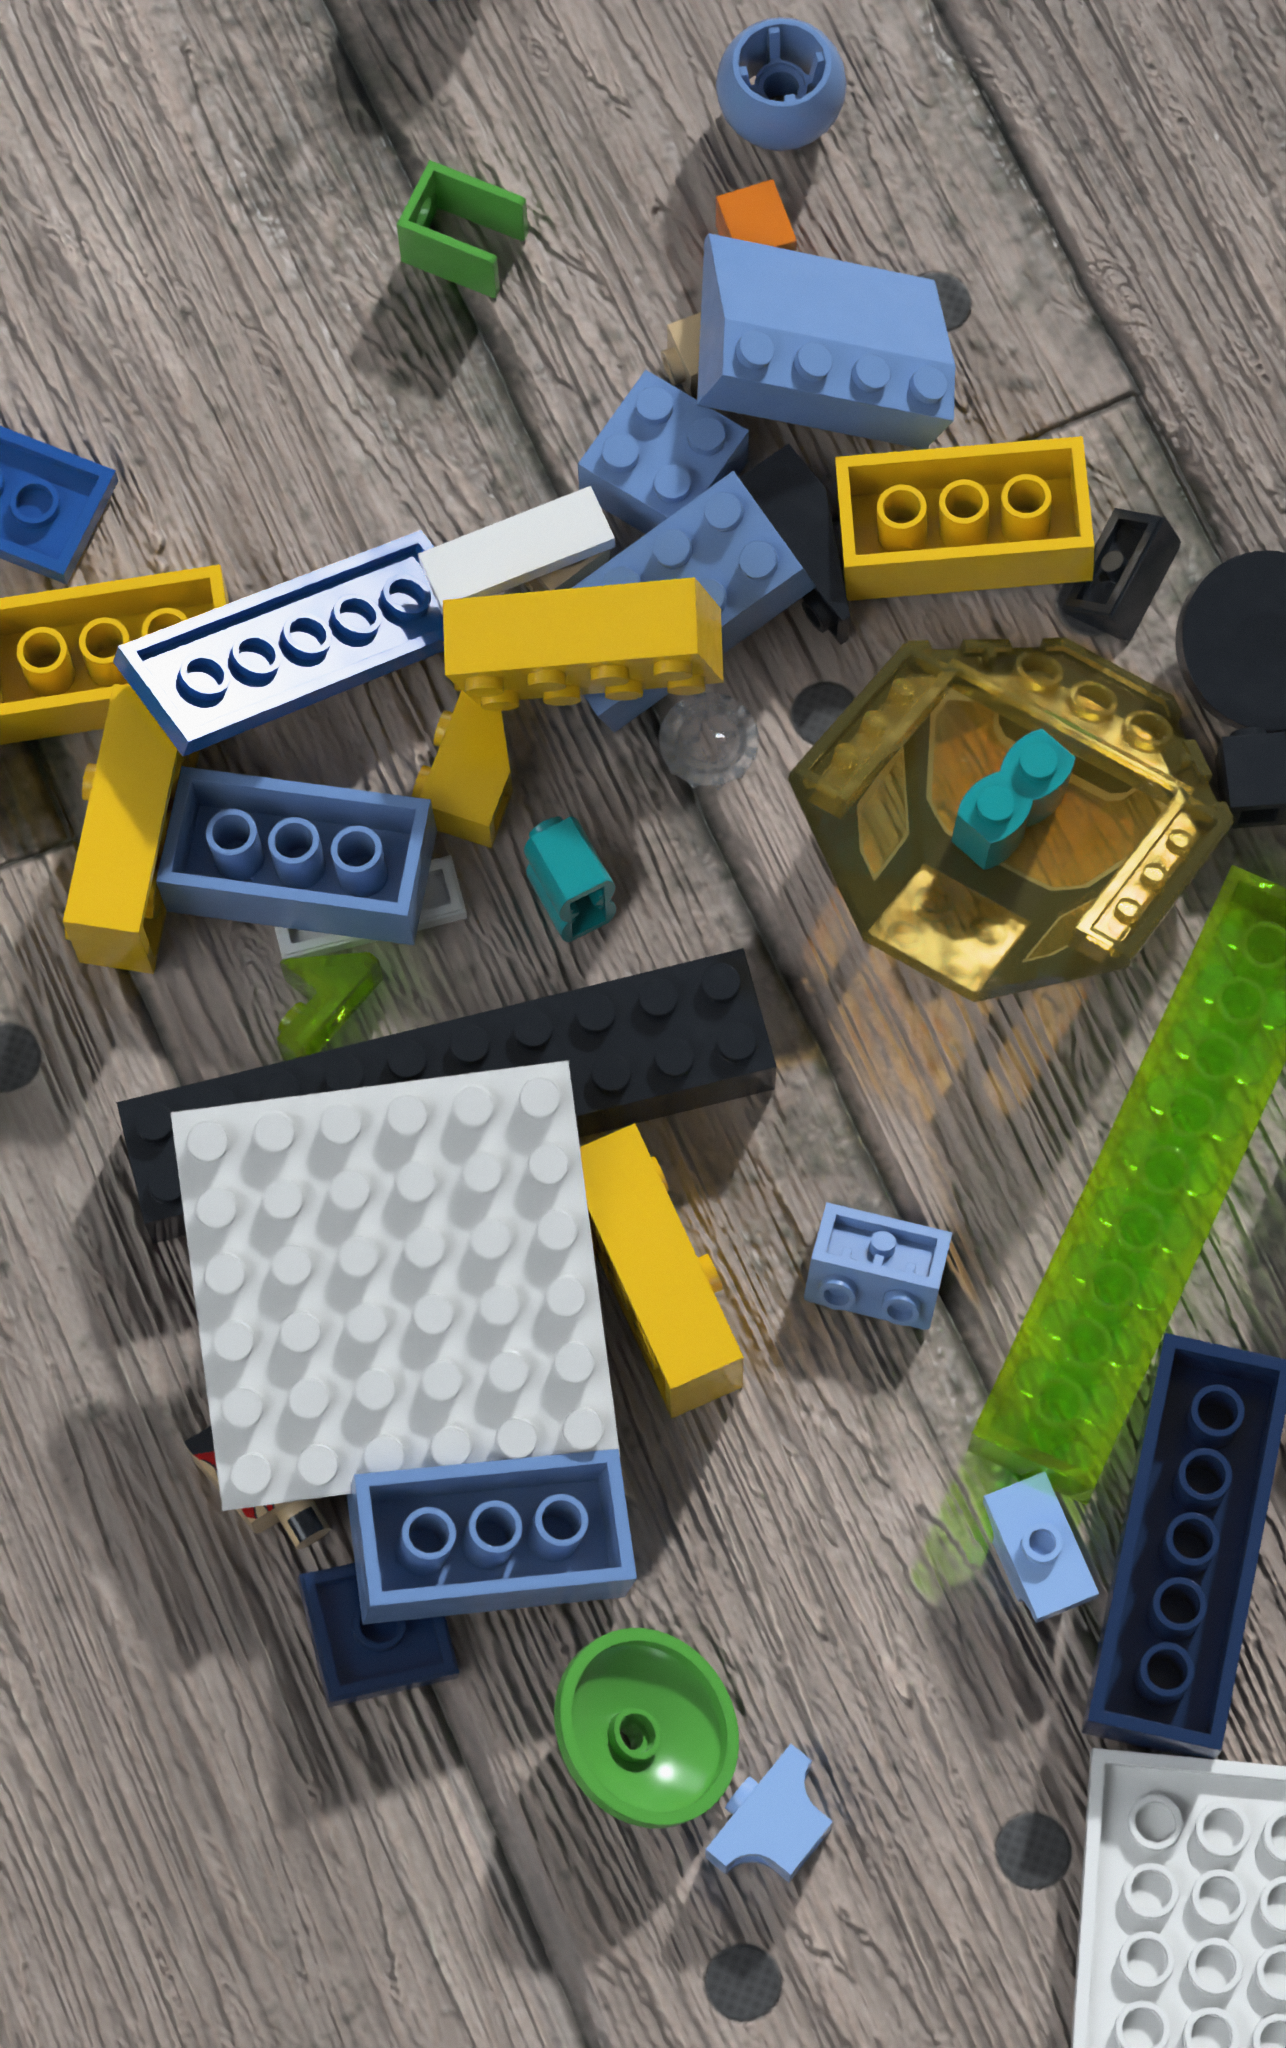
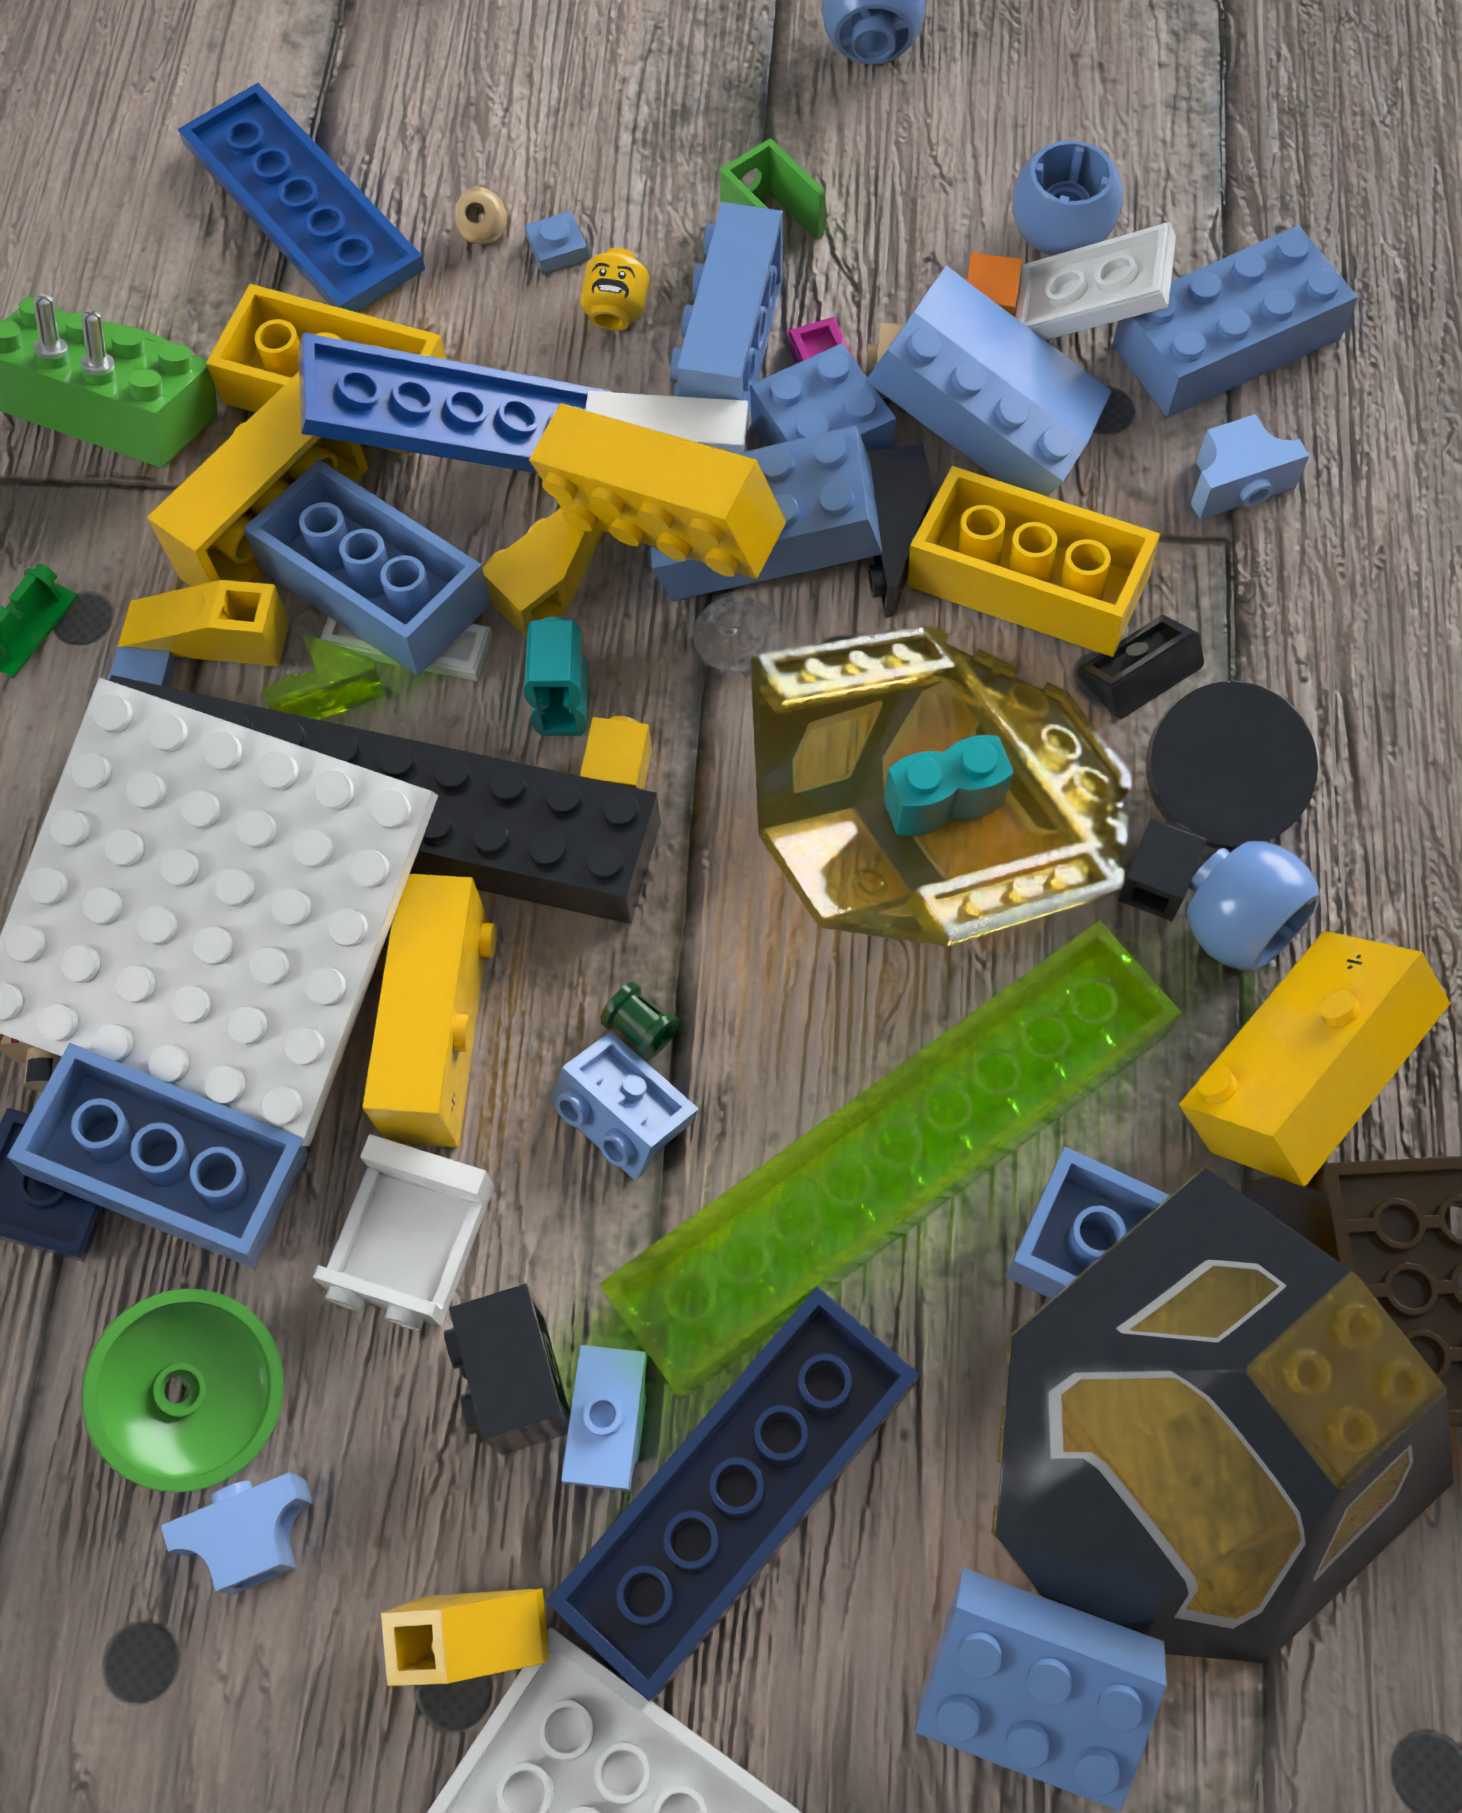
camera: 30 degrees right, 5 degrees down
(113, 1081) = (144, 665): none -> medium blue tile
(157, 1000) = (211, 623): none -> yellow slope
(161, 392) = (473, 204): none -> tan piece
(244, 380) = (556, 242): none -> medium blue plate
(351, 411) = (614, 289): none -> yellow head
(505, 388) = (732, 306): none -> medium blue brick
(602, 374) = (814, 339): none -> dark pink tile
(669, 926) = (618, 751): none -> yellow brick
(749, 1488) = (406, 1234): none -> white panel
(847, 1178) = (639, 1020): none -> dark green bush
(867, 174) = (1097, 283): none -> white tile
(933, 1552) = (509, 1369): none -> black brick
(1021, 145) = (1236, 321): none -> medium blue brick
(1030, 1790) = (464, 1636): none -> yellow slope
(1115, 309) = (1244, 467): none -> light blue brick

